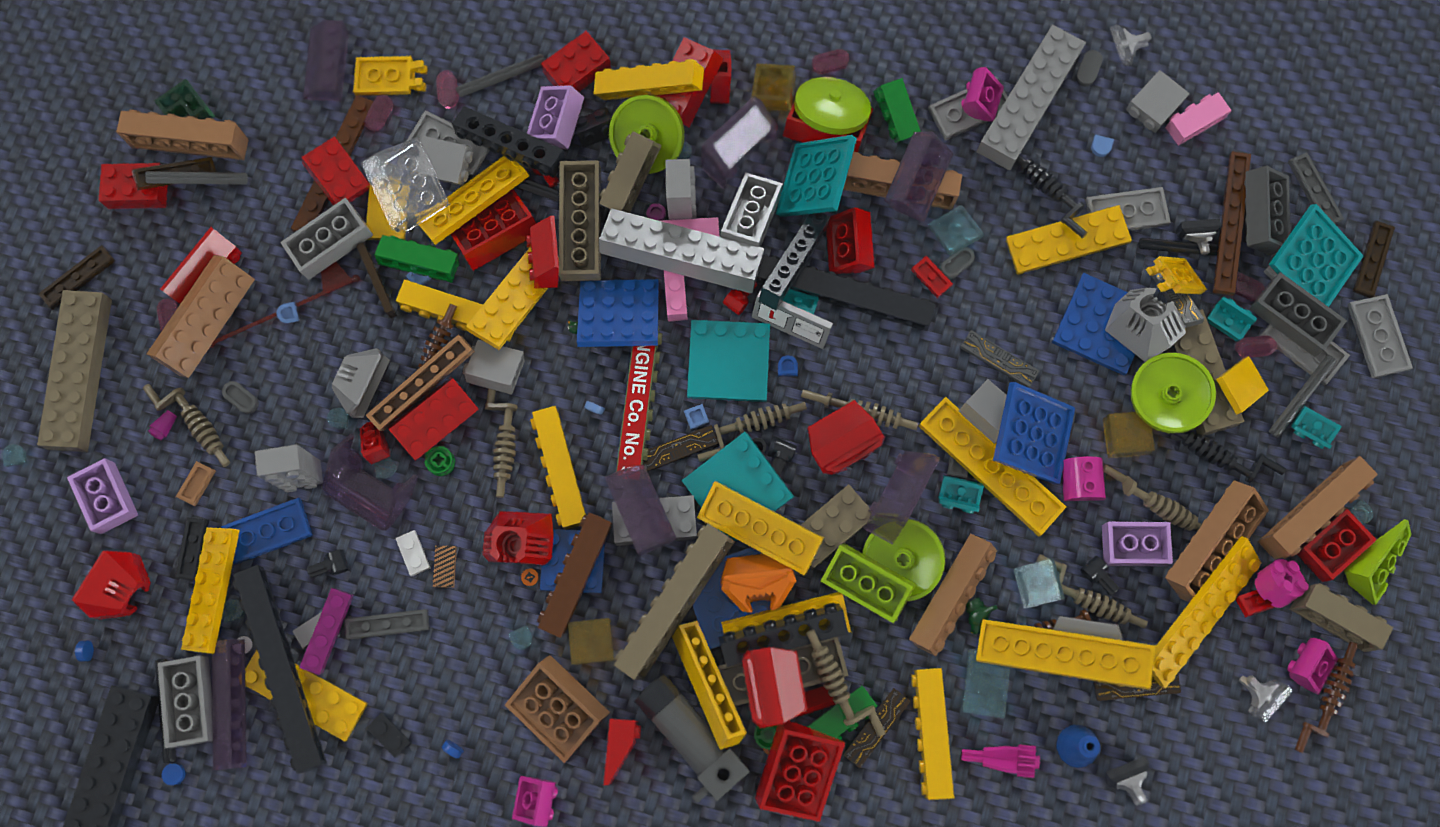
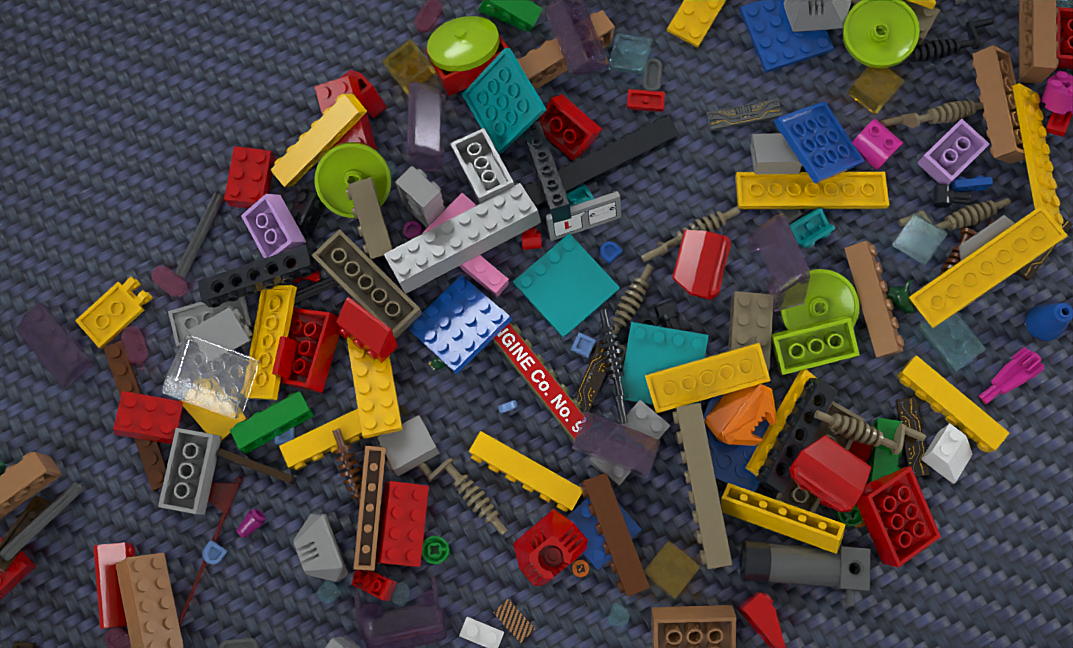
camera: 45 degrees left, 0 degrees up
(334, 316) = (251, 522): none -> magenta cone
(469, 219) = (284, 357): none -> red tile
(703, 447) = (613, 360): none -> black piece
(890, 767) = (948, 453): none -> white slope
(1122, 578) = (976, 184): none -> blue plate

